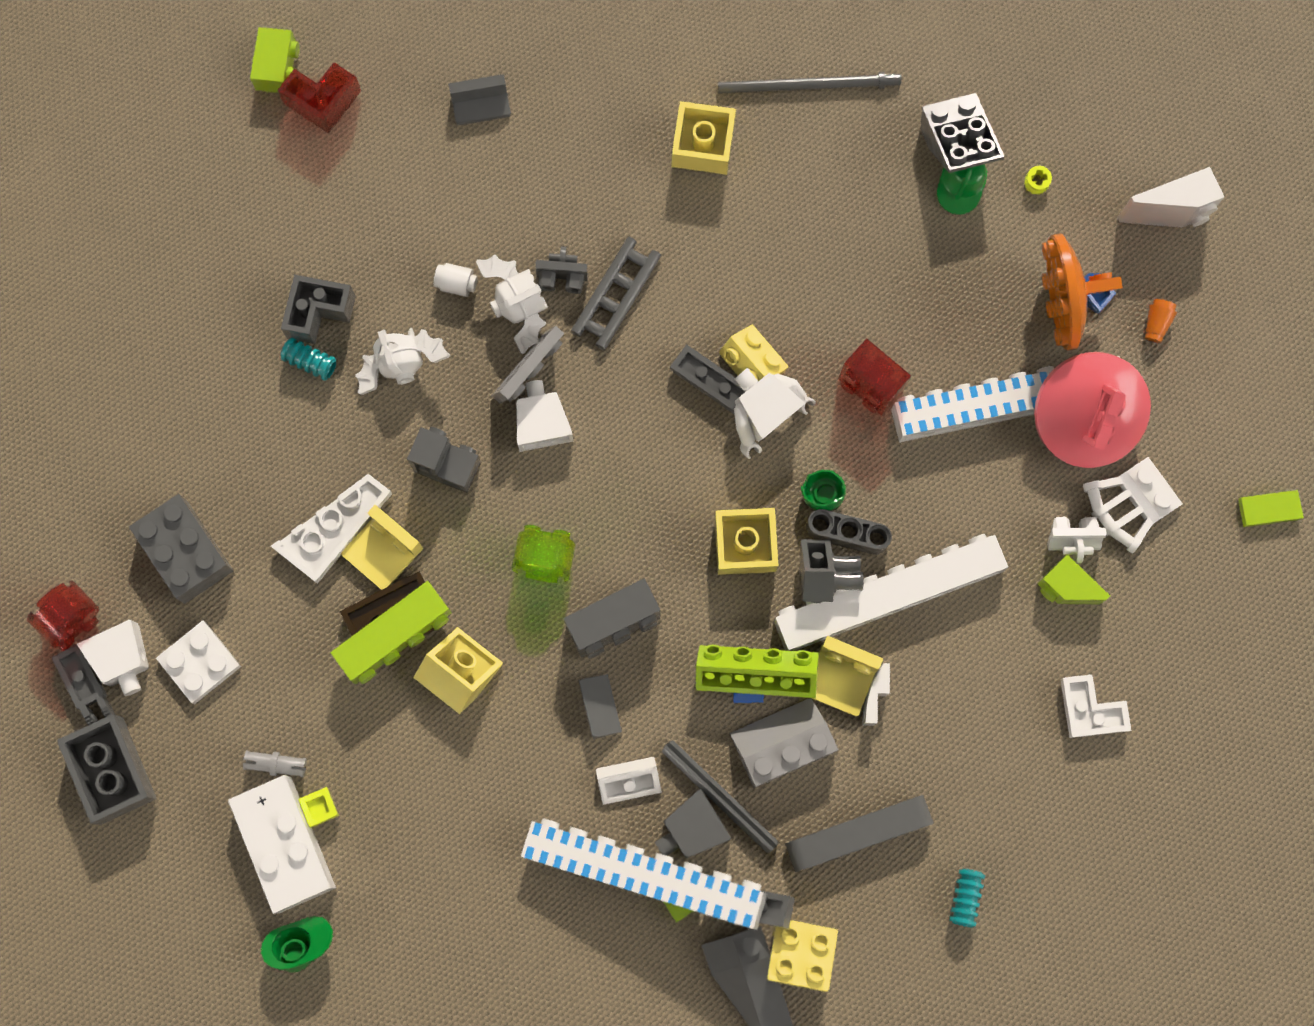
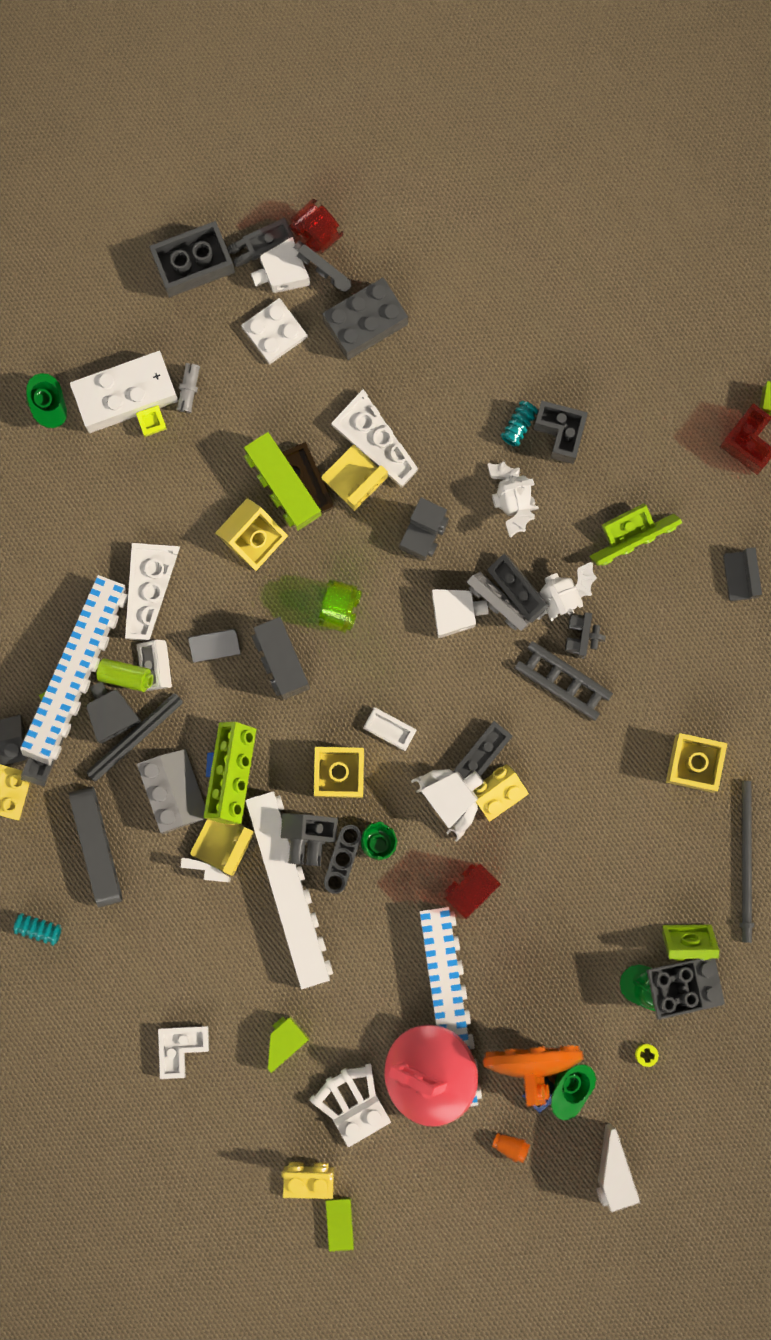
camera: 95 degrees right, 5 degrees up
(117, 601) = (323, 267): none -> dark grey hinge
(435, 223) = (630, 531): none -> lime bracket
(455, 279) = (581, 546): white brick -> none
(509, 346) = (518, 588): none -> dark grey plate
(526, 795) = (148, 581): none -> white wing
(644, 813) = (124, 675): none -> lime brick
(687, 489) = (389, 729): none -> white tile
(908, 133) = (690, 942): none -> lime plate
(1076, 541) = (320, 1051): white hips -> none
(1093, 254) = (572, 1090): none -> green piece
(1226, 546) = (307, 1181): none -> light yellow bracket

